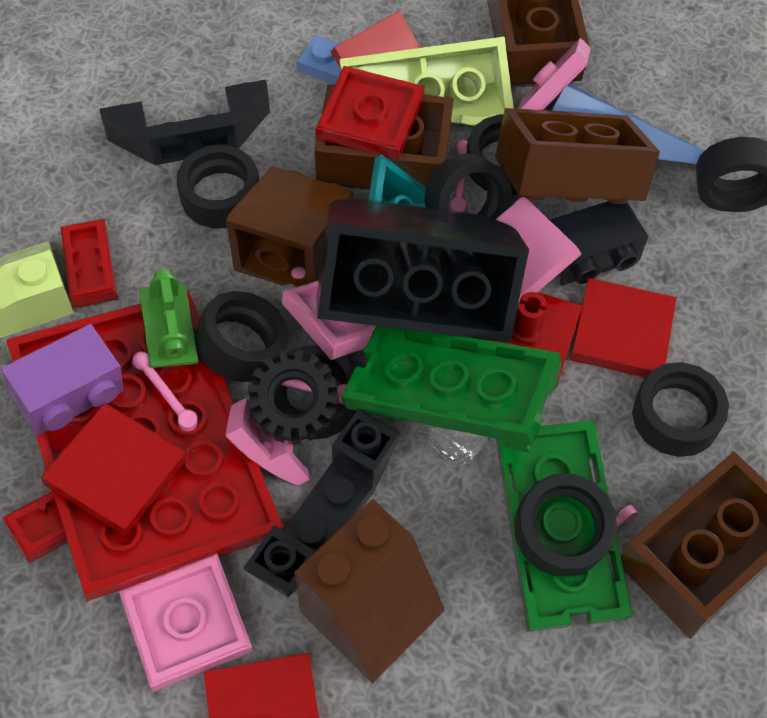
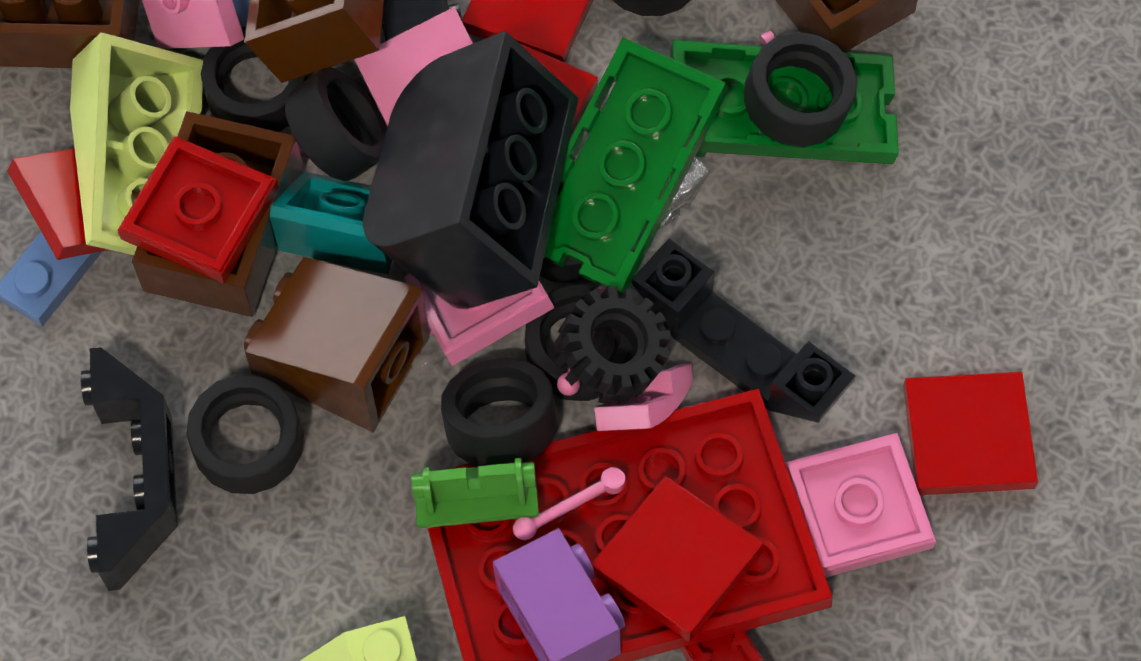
camera: 80 degrees left, 5 degrees up
(88, 263) = (328, 606): red plate -> none
(369, 591) = (847, 300): reddish brown slope -> none

